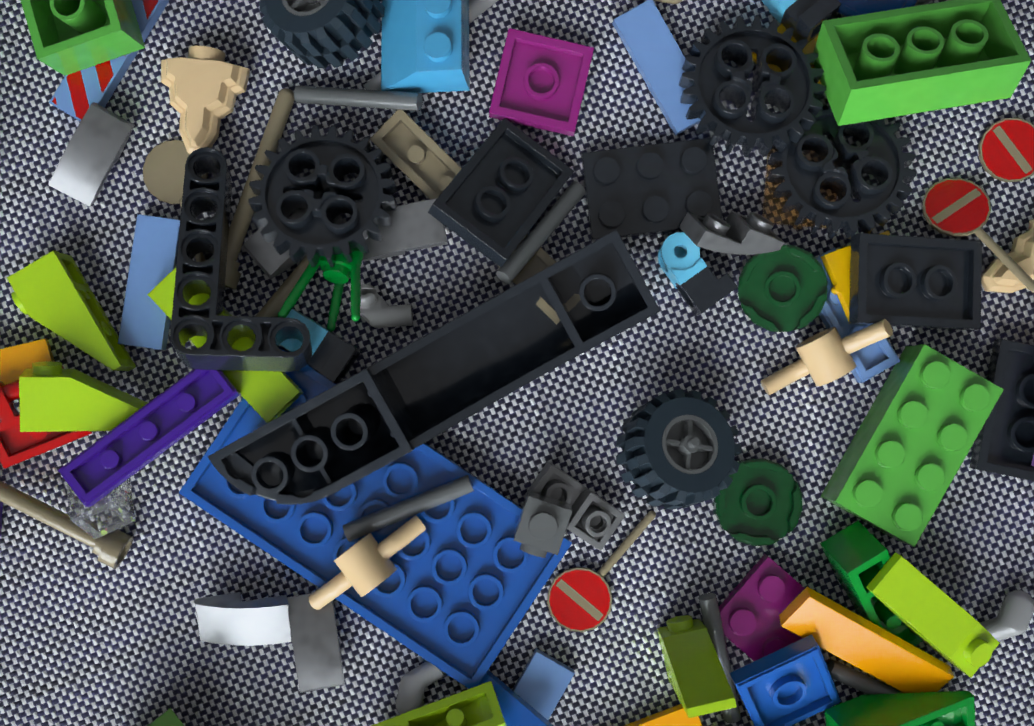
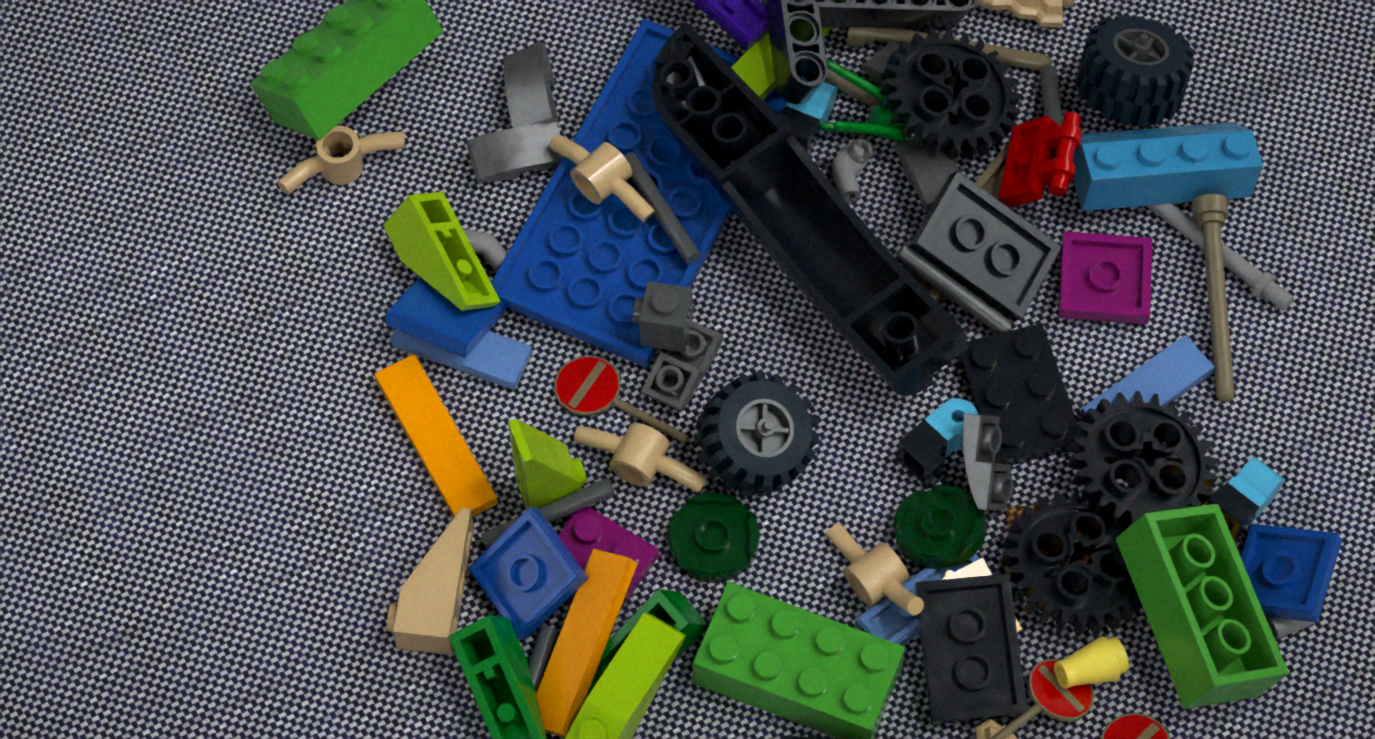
camera: 80 degrees right, 25 degrees down
(415, 129) = (1030, 161): none -> red plate
(670, 562) = (640, 455): none -> tan piece
(942, 171) = (1095, 663): none -> light yellow cone

